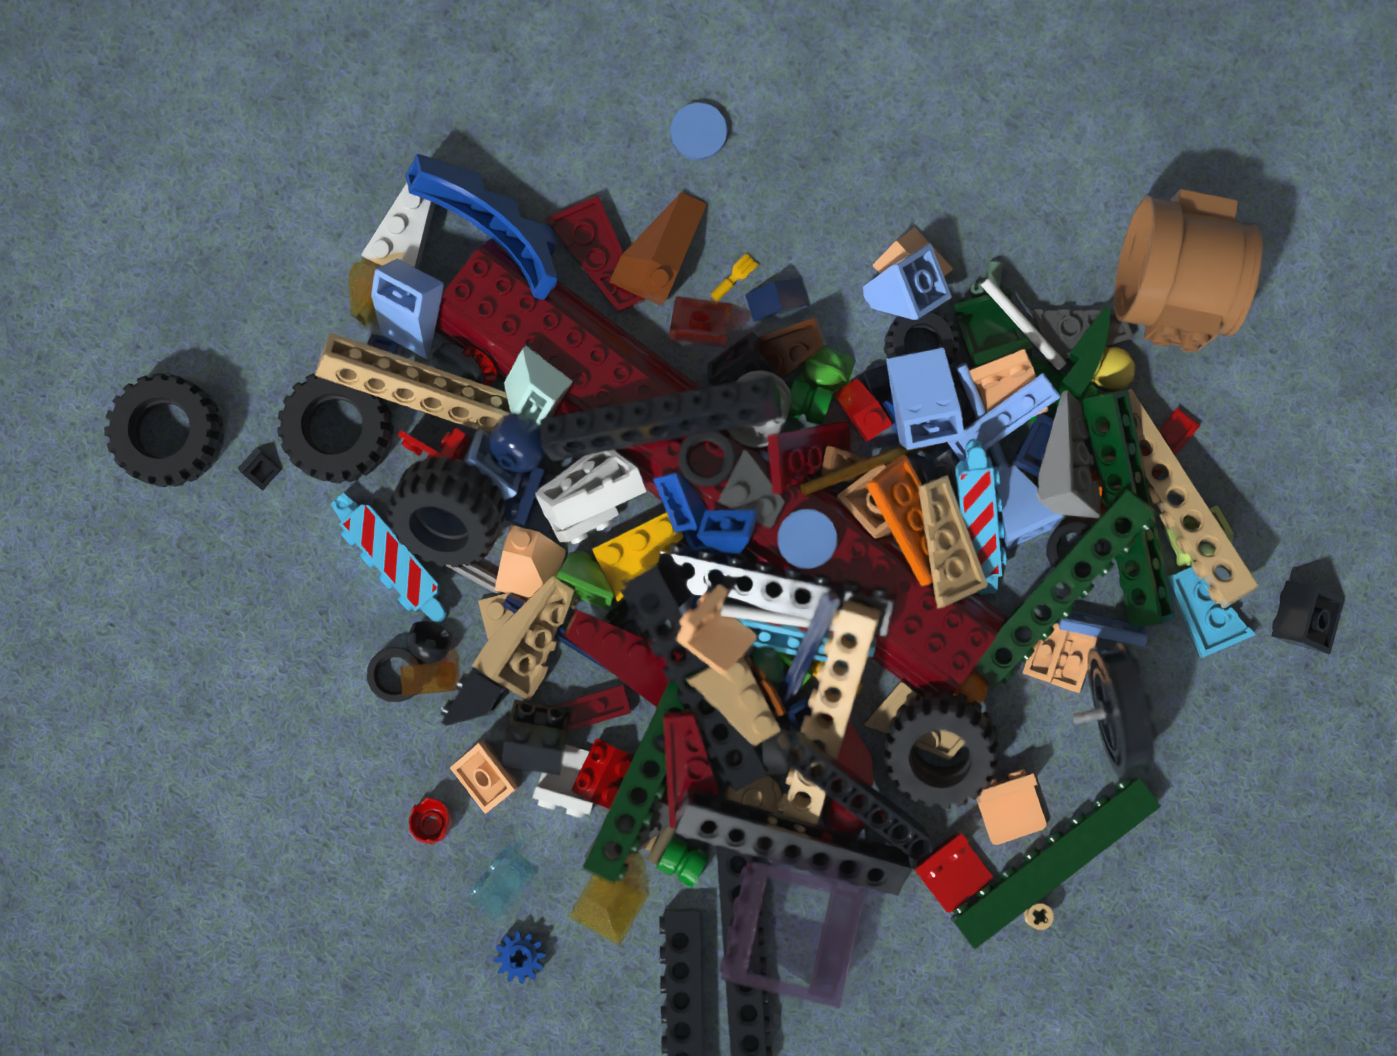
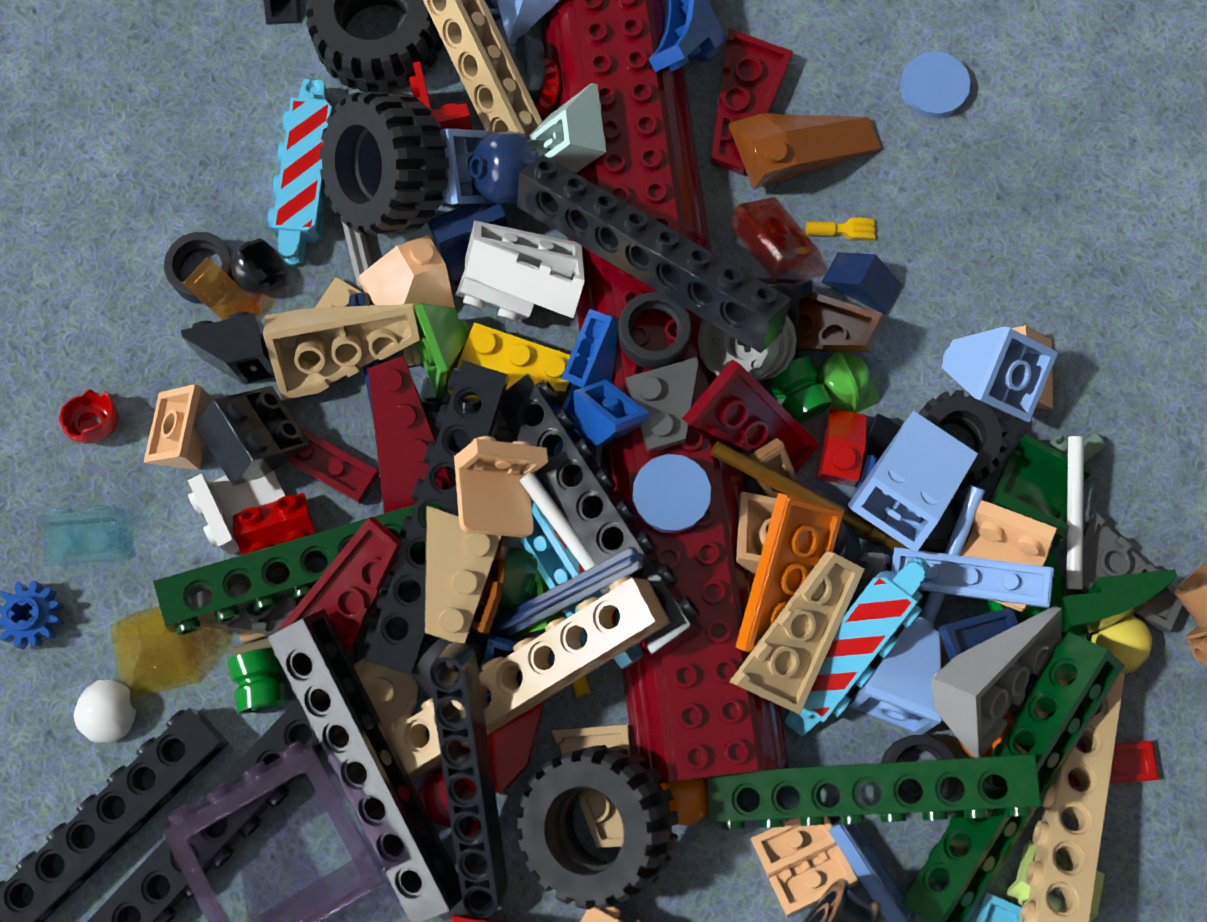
camera: 50 degrees right, 10 degrees down
(618, 961) = (104, 712): none -> white hair

